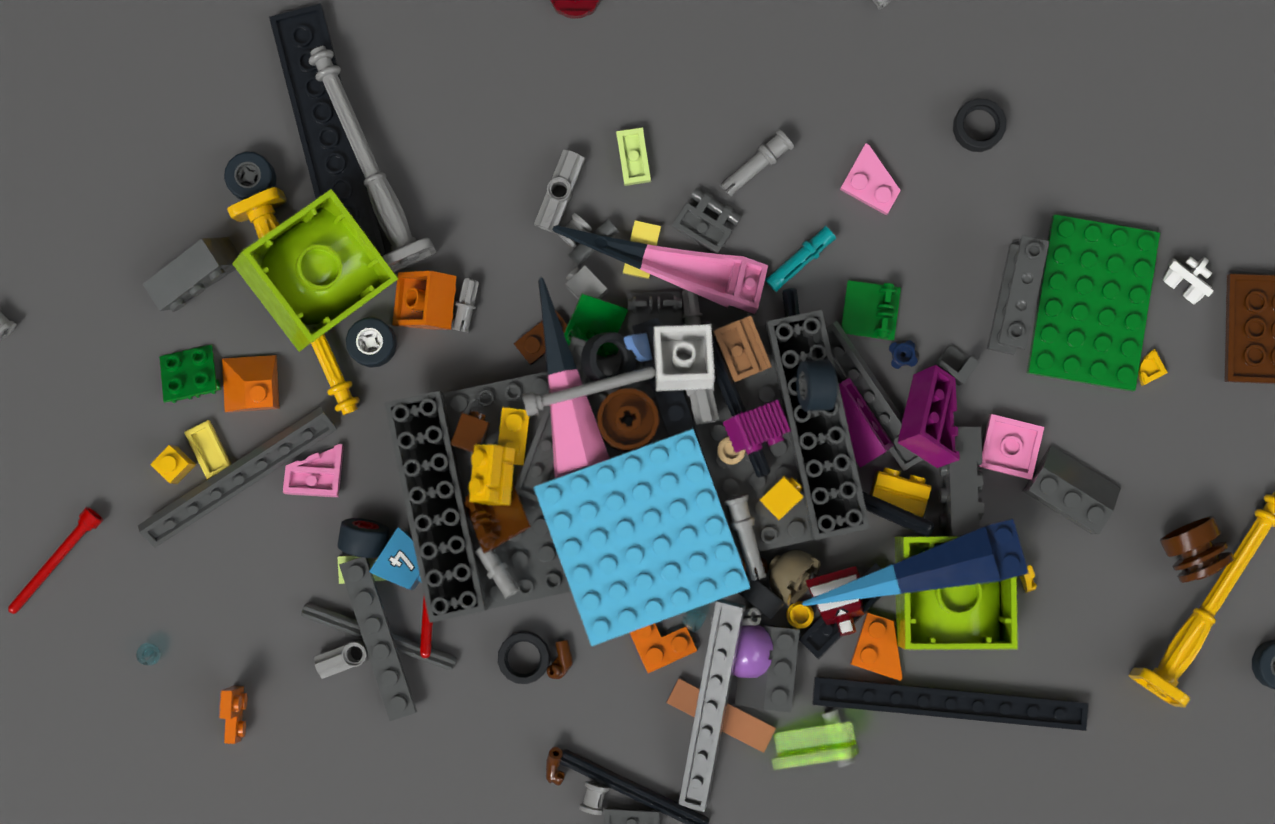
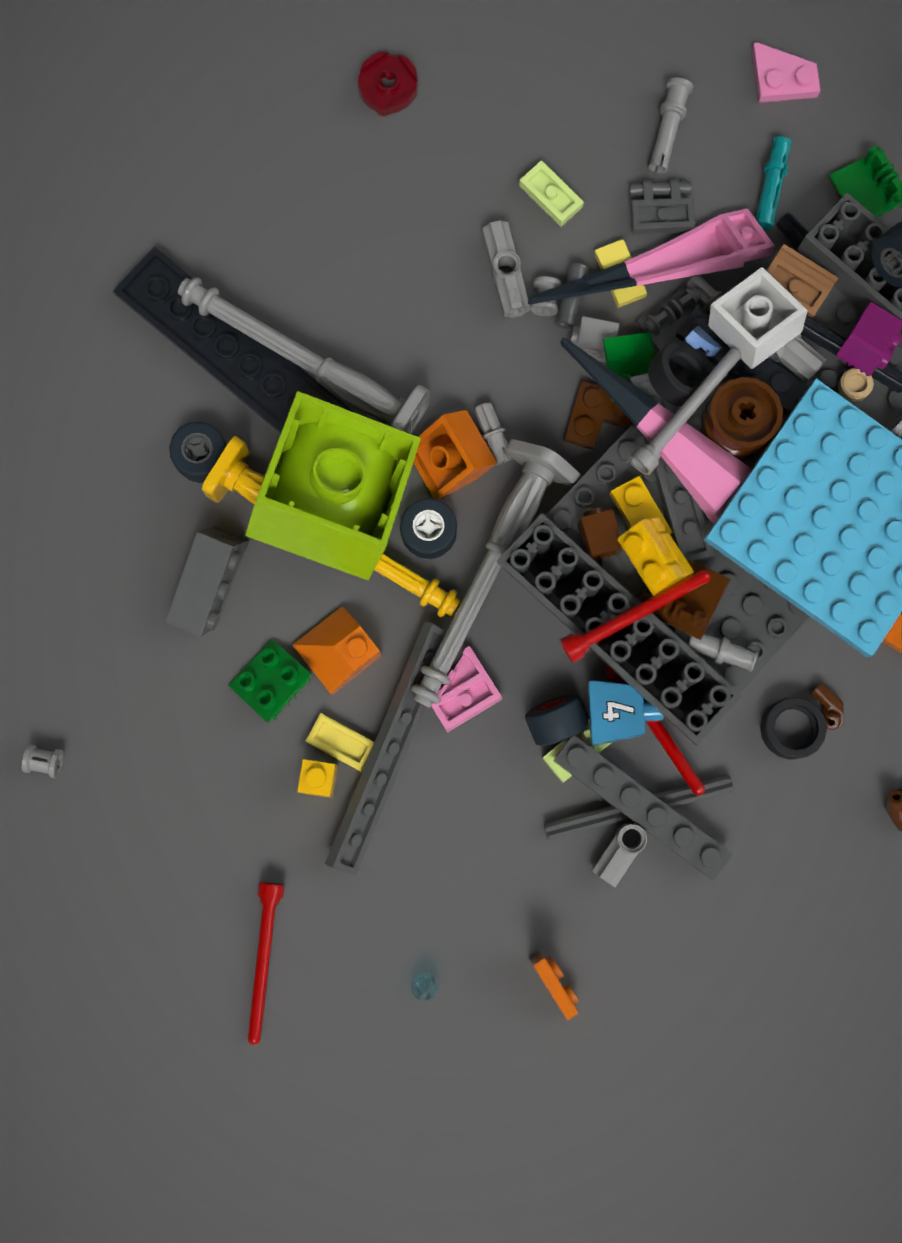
camera: 40 degrees left, 5 degrees down
(394, 499) = (578, 644): none -> red piece
(426, 380) = (539, 469): none -> light grey piece

